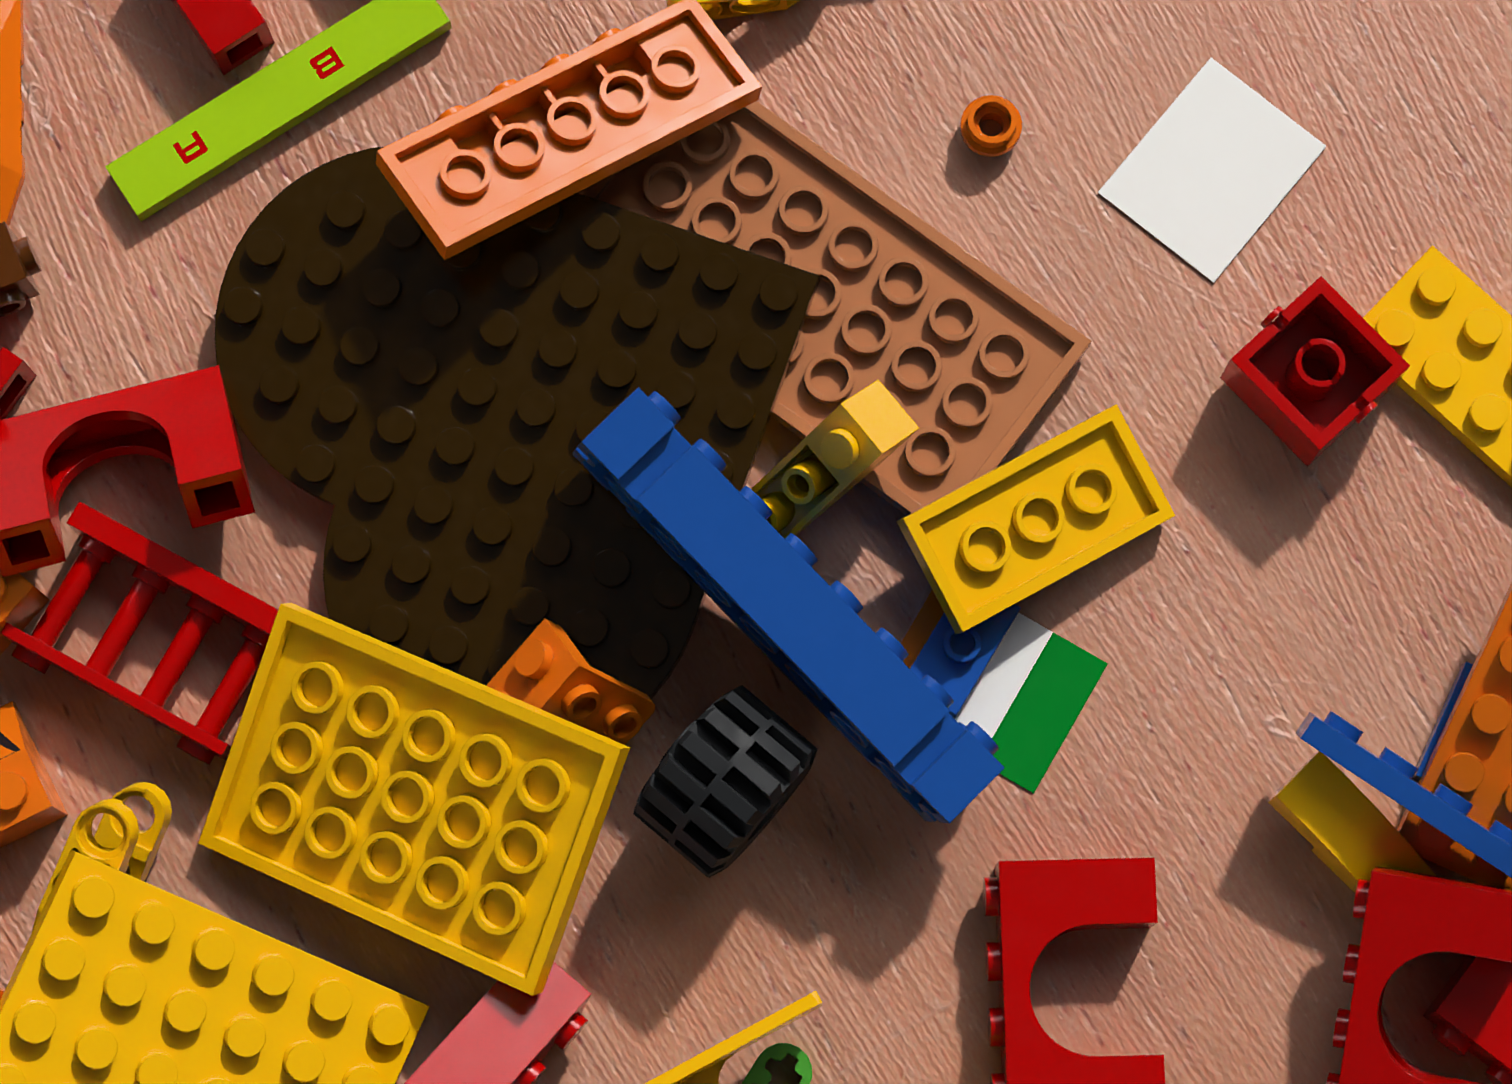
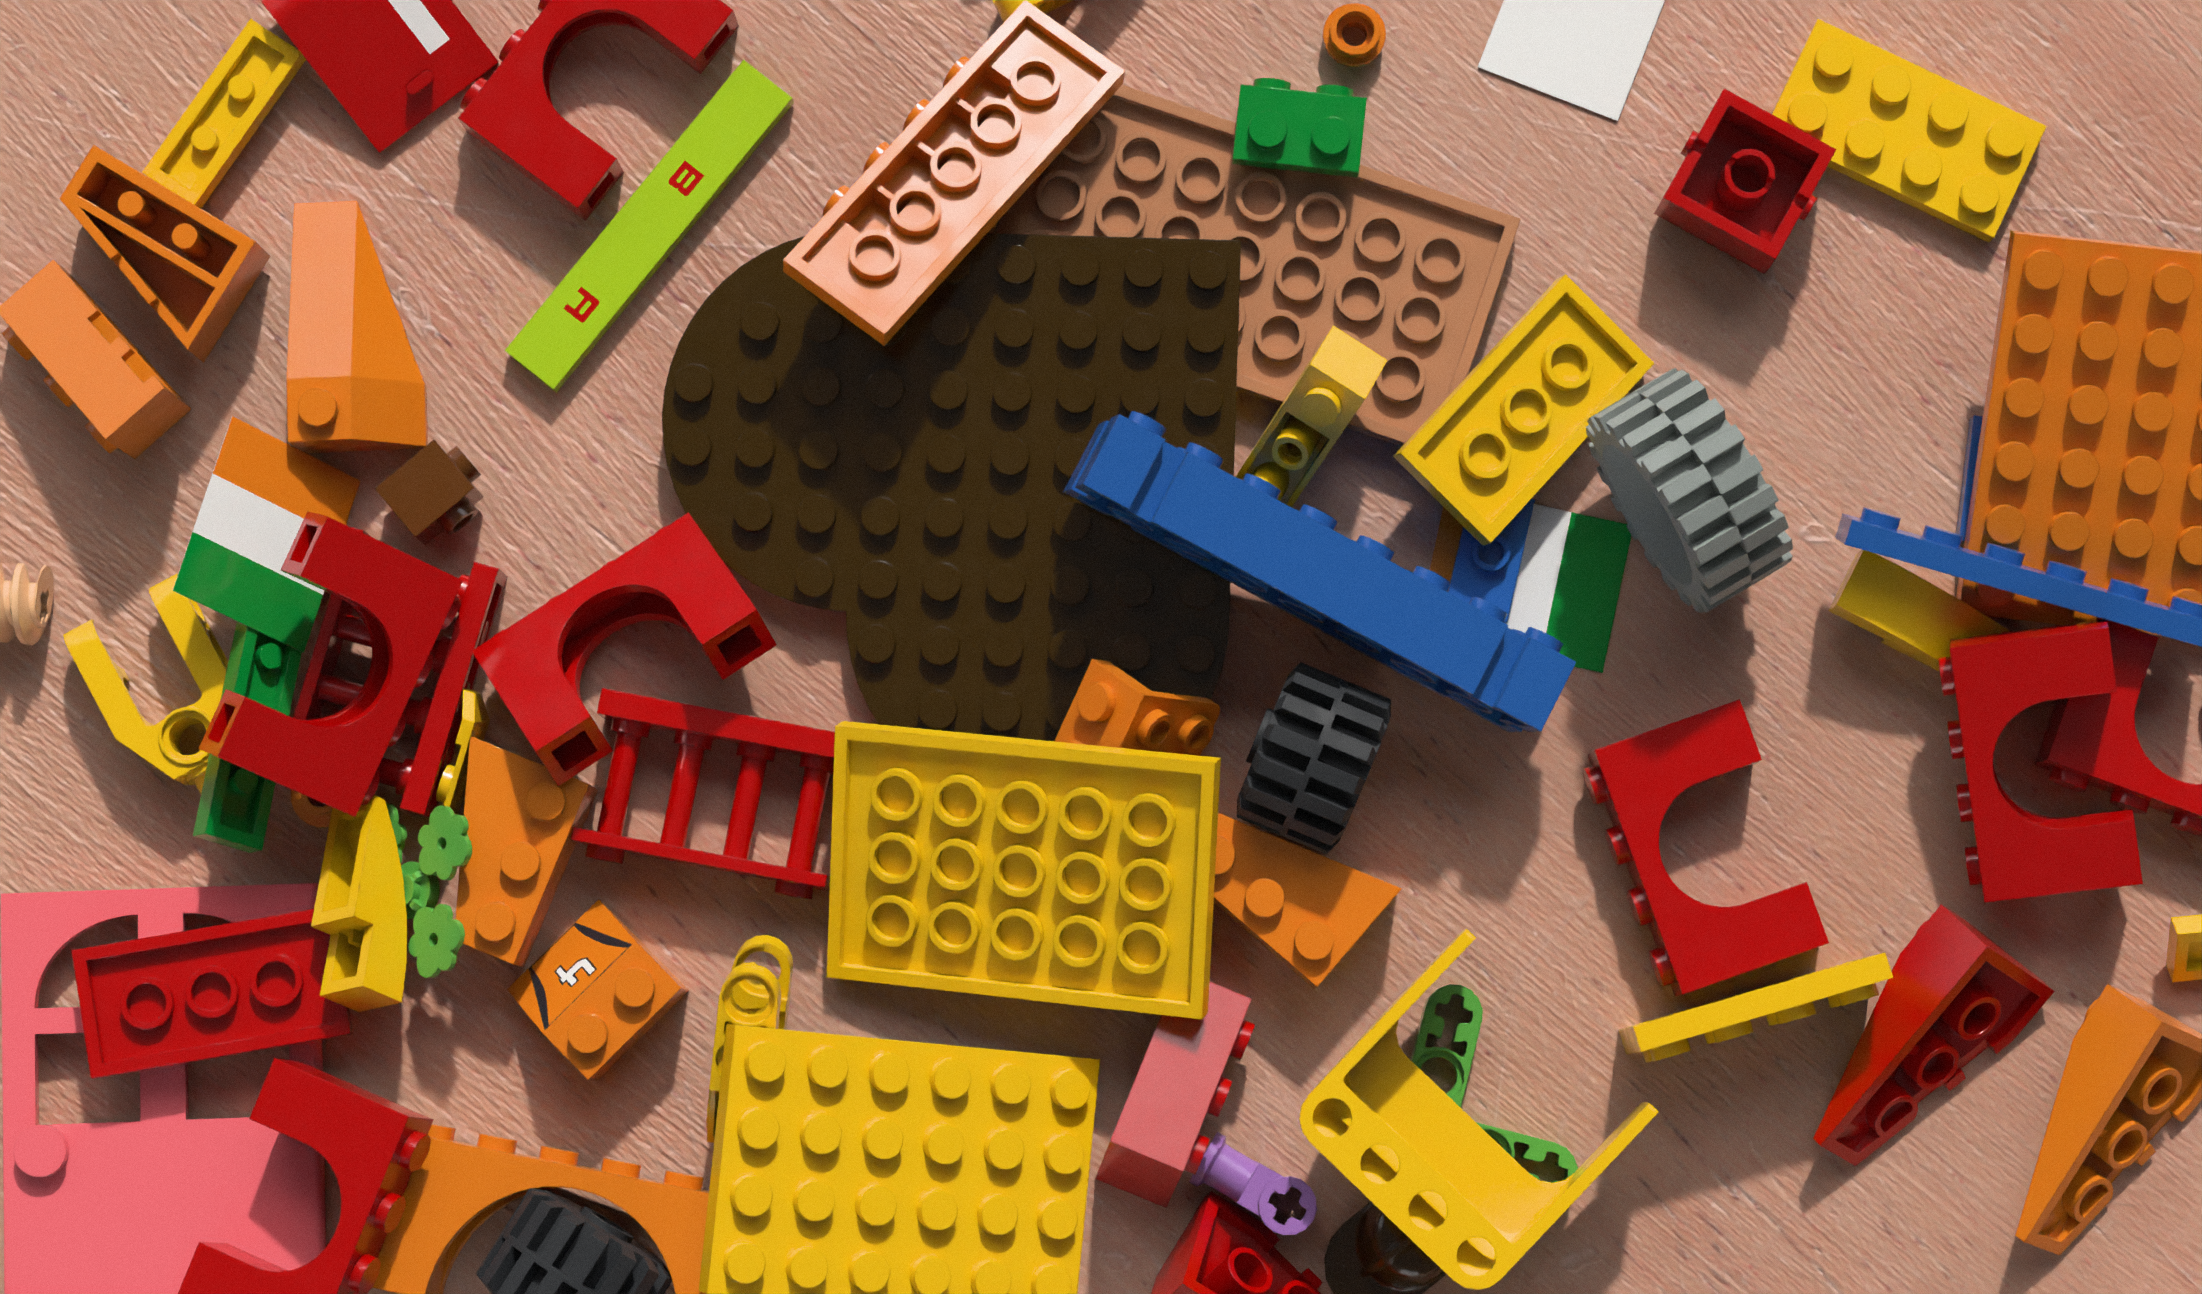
camera: 15 degrees left, 5 degrees up
(663, 909) = (1293, 898): none -> orange wedge
(909, 192) = (1299, 128): none -> green bracket
(1168, 640) = (1689, 490): none -> light grey wheel

